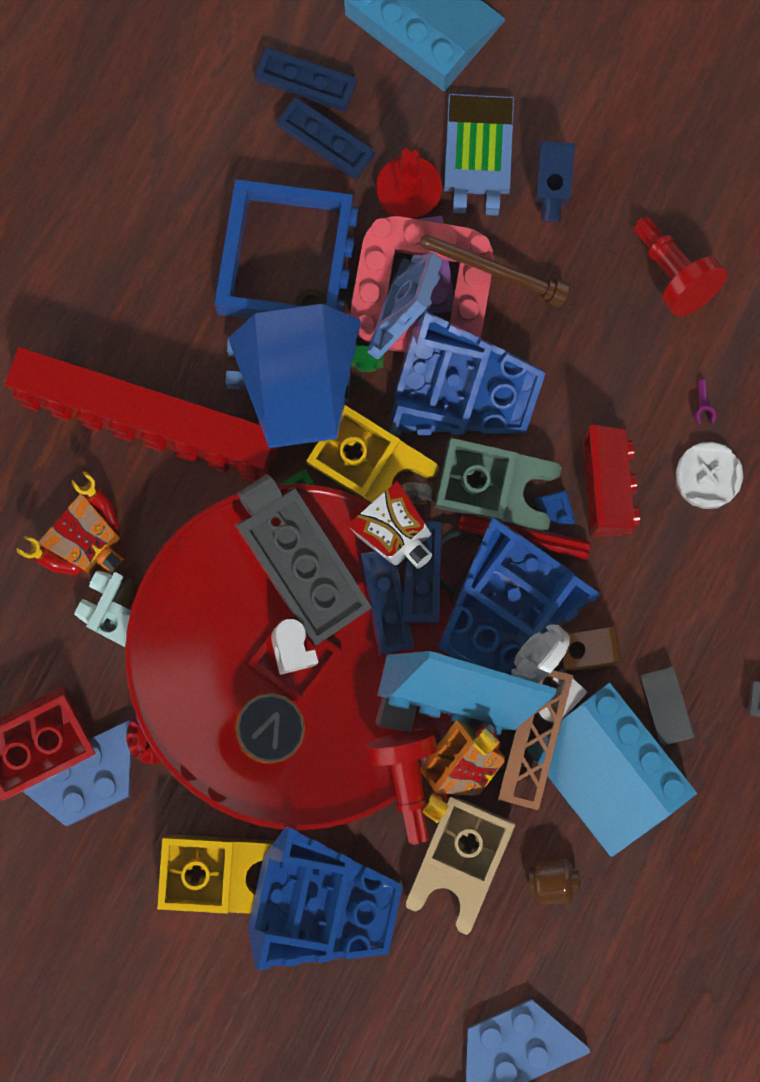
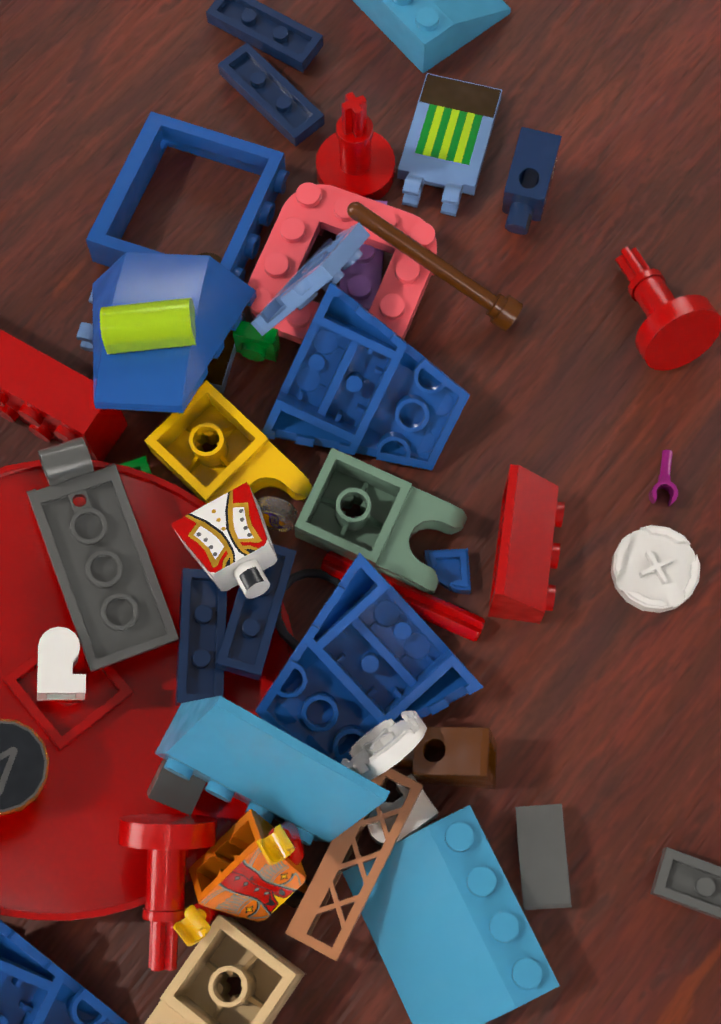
camera: 10 degrees right, 10 degrees down
(295, 376) = (148, 325): none -> lime brick

